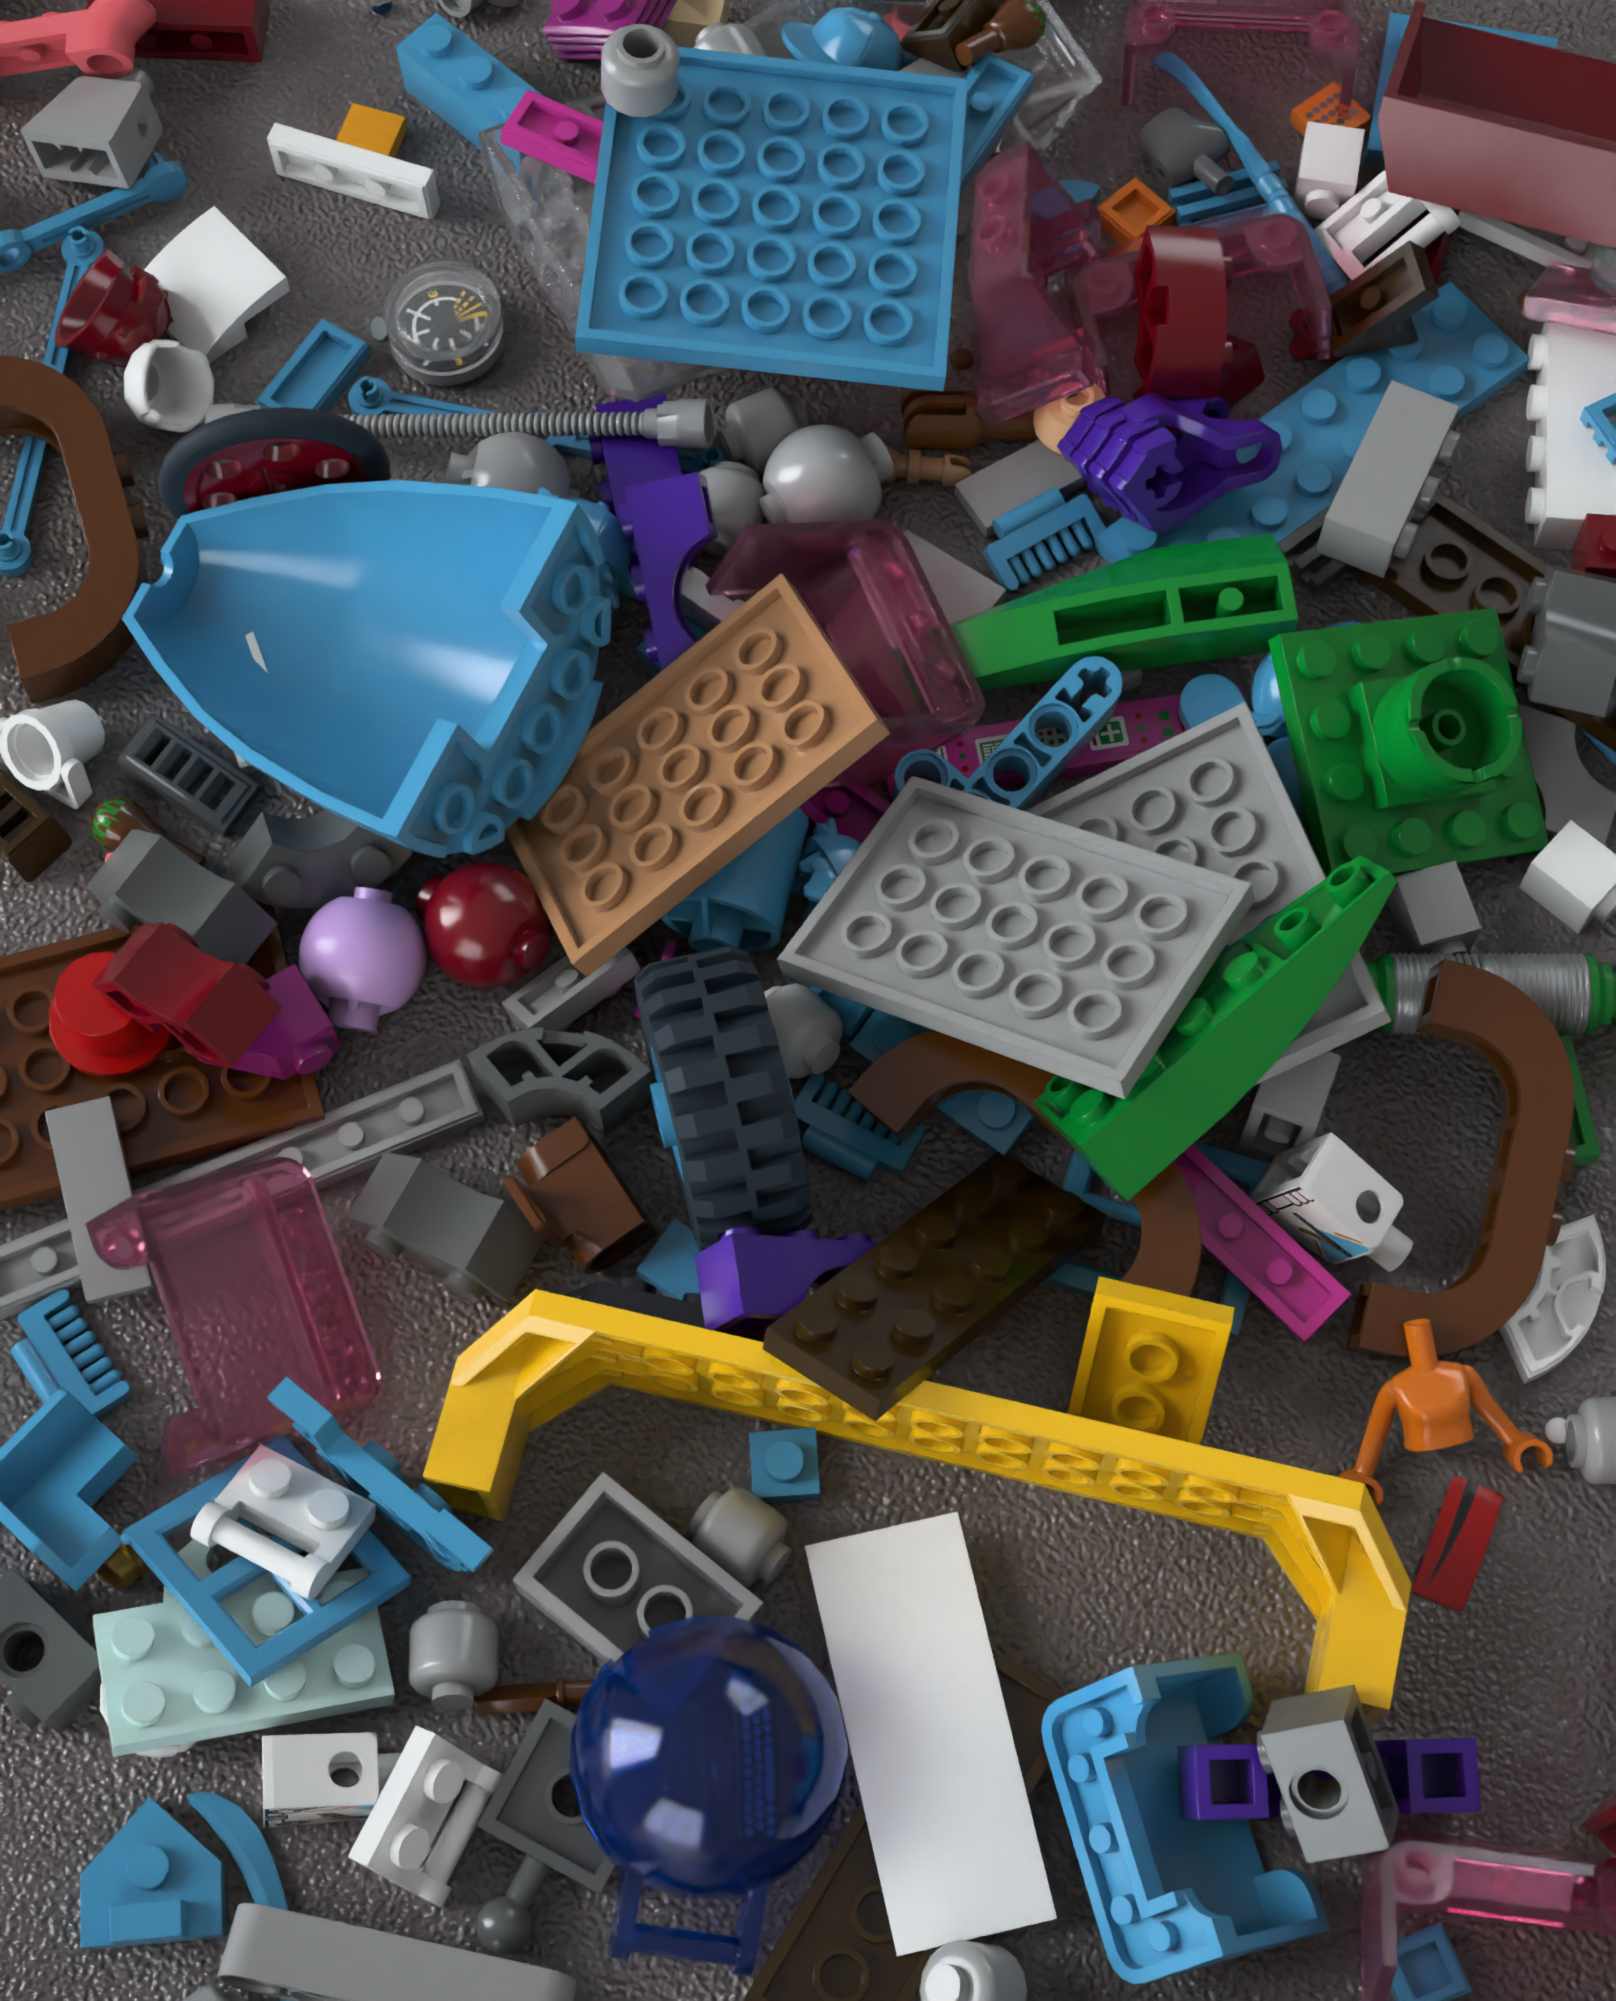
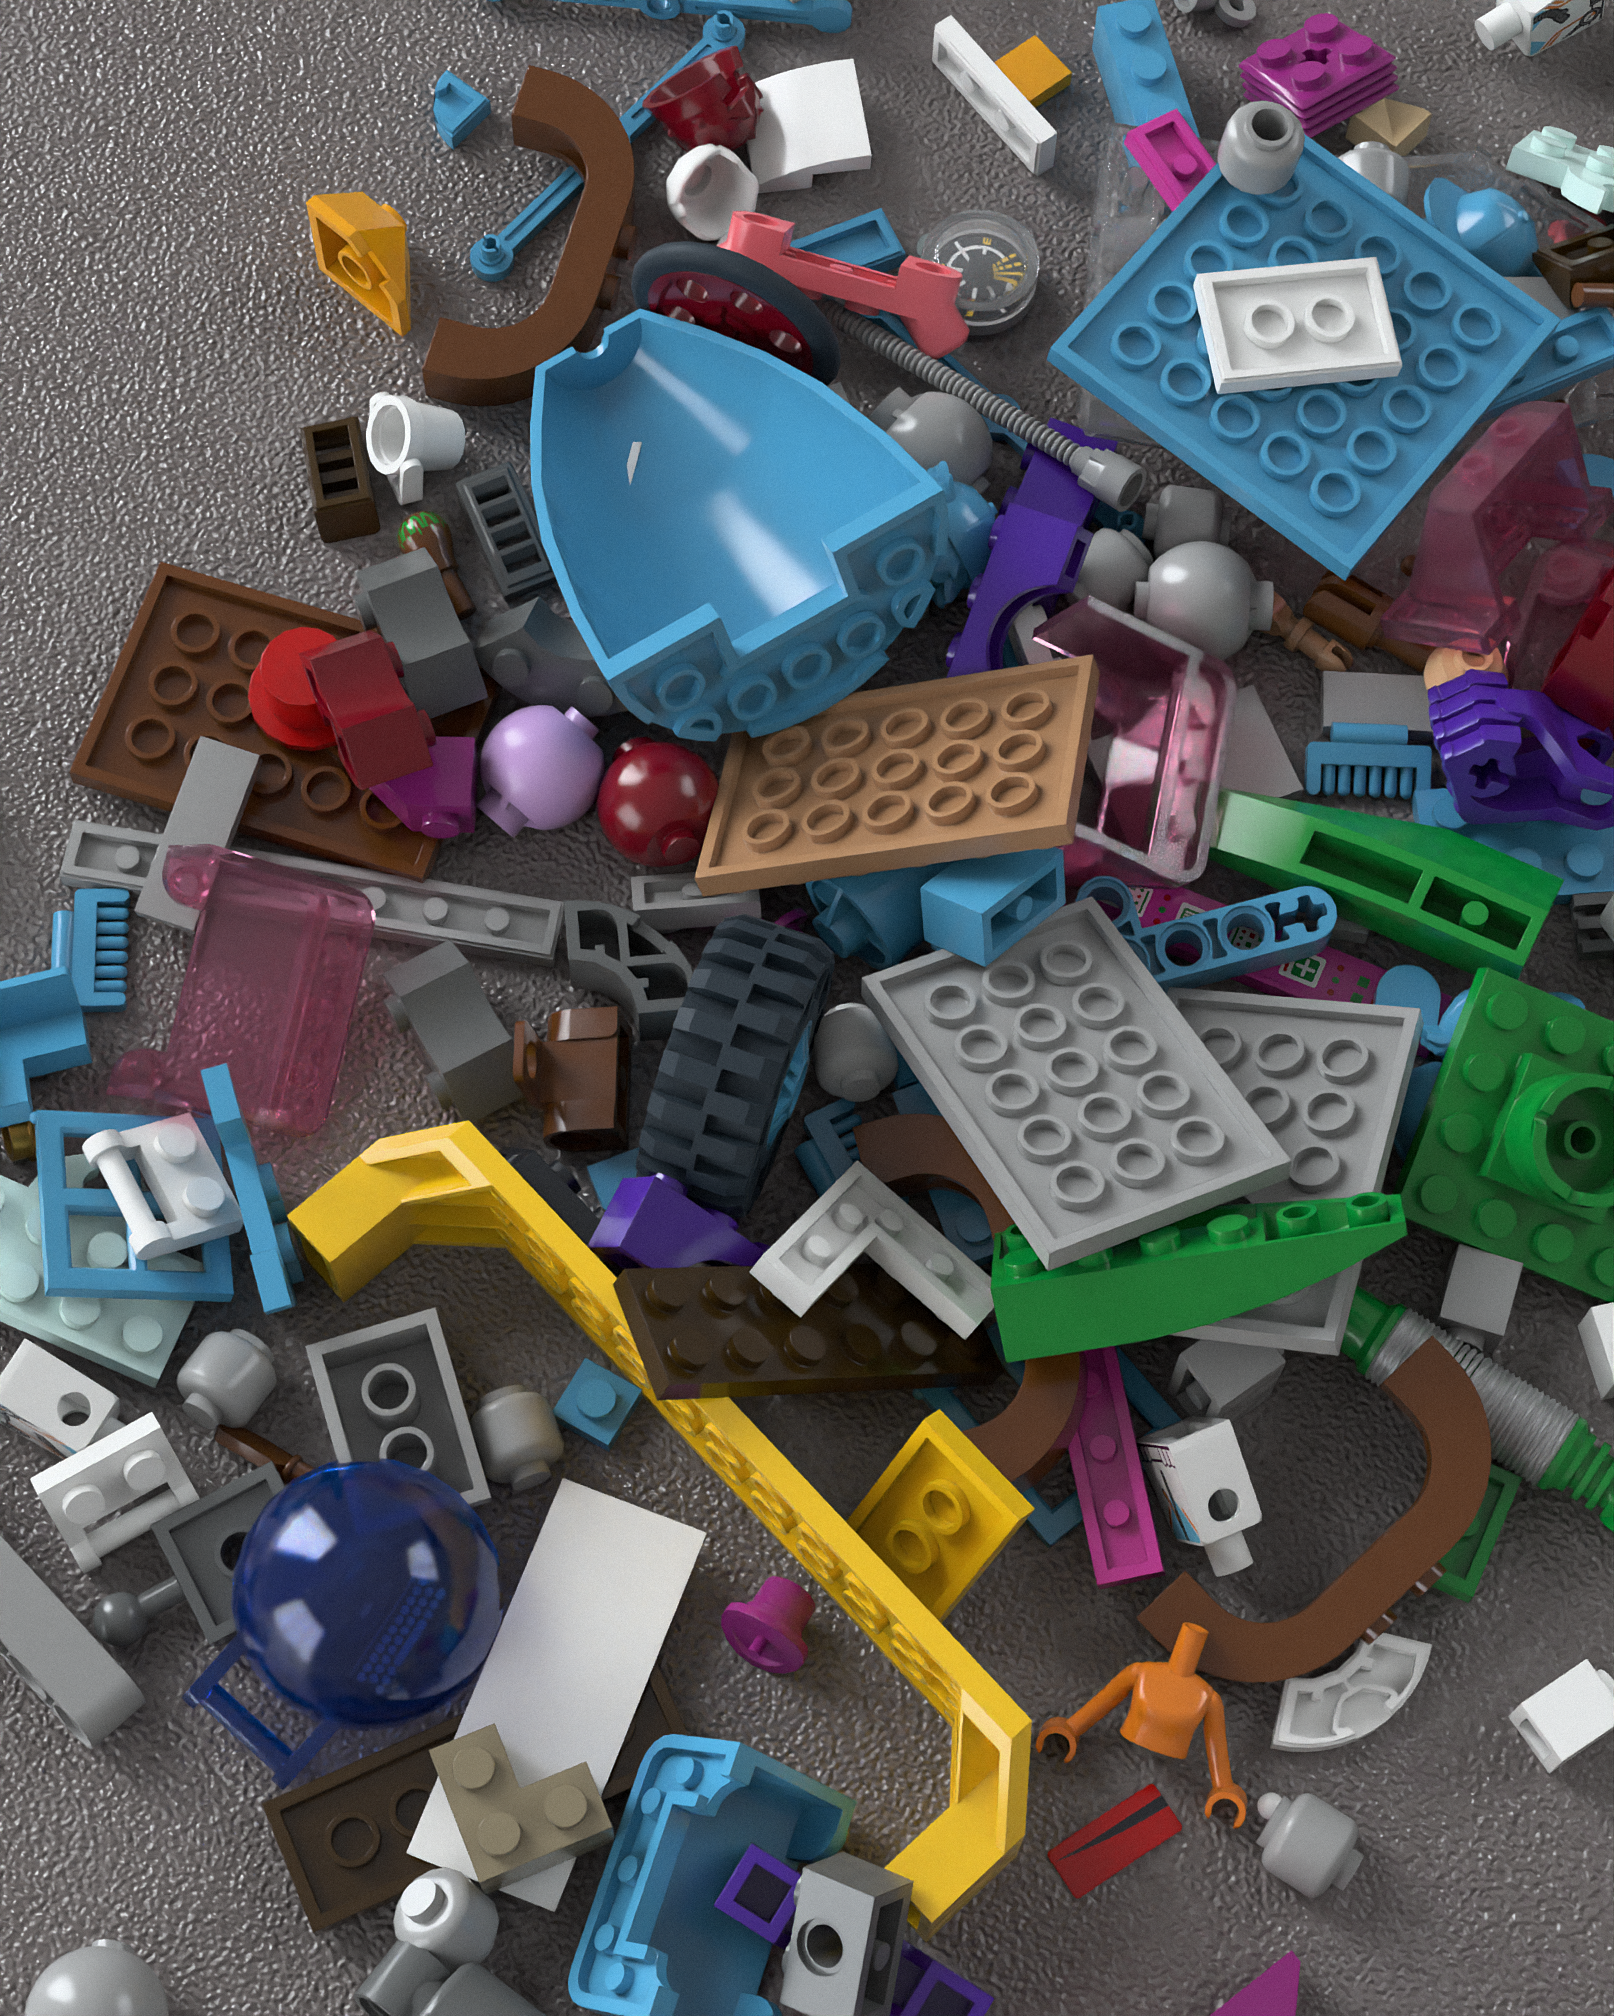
camera: 30 degrees right, 0 degrees up
(416, 367) = (920, 293): none -> coral plate
(764, 202) = (1297, 325): none -> white tile
(840, 831) = (992, 902): none -> dark azure brick
(918, 1159) = (868, 1217): none -> white plate
(976, 1873) = (513, 1828): none -> dark tan brick
(1063, 1554) = (771, 1626): none -> magenta piece

